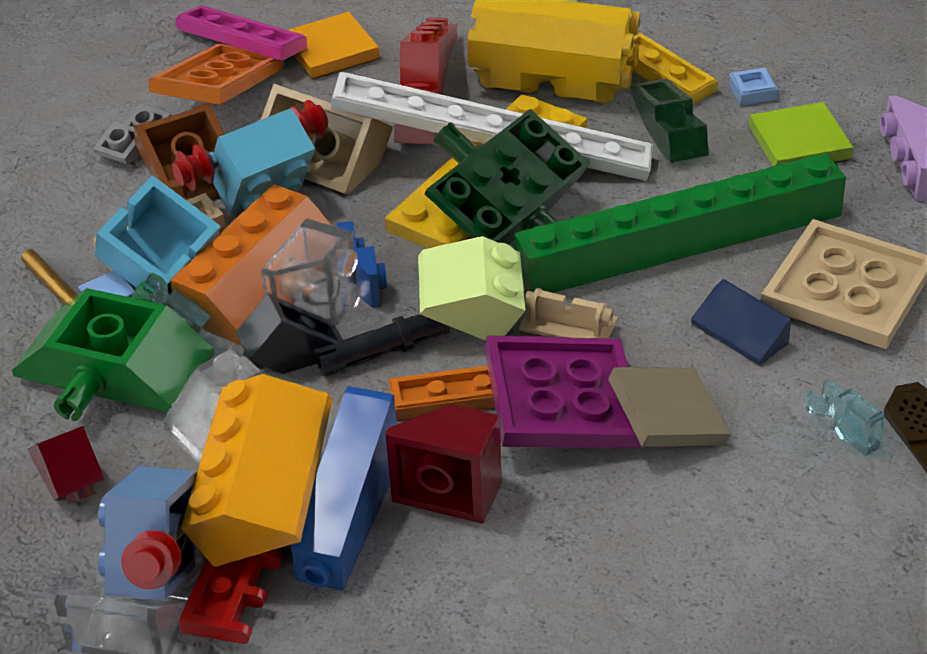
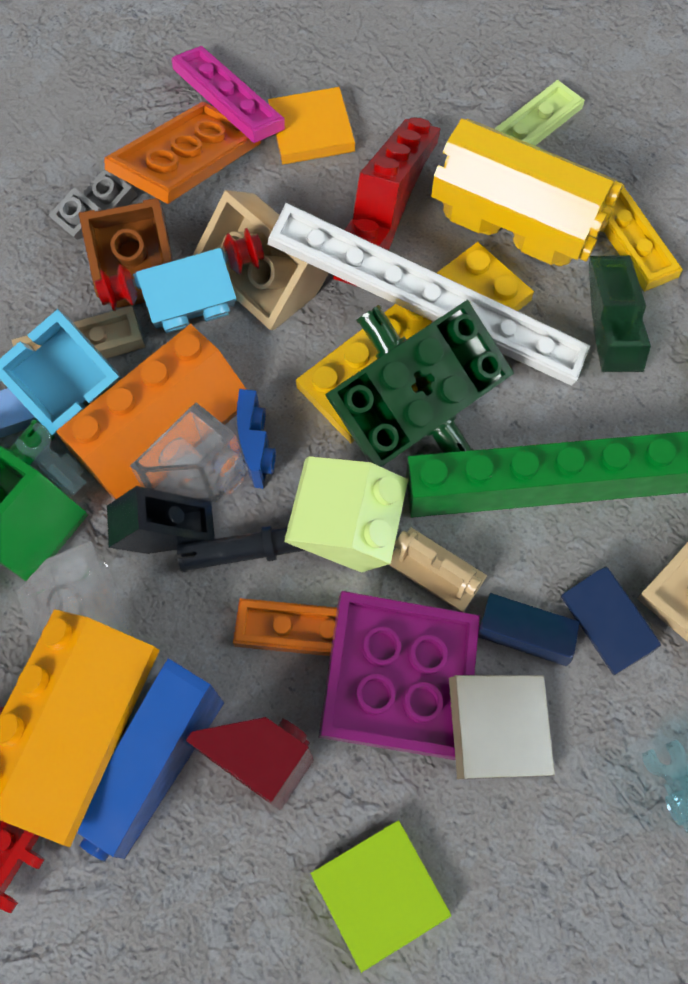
camera: 15 degrees right, 25 degrees up
(600, 552) = (380, 895): none -> lime tile
(670, 349) = (529, 629): none -> dark blue slope

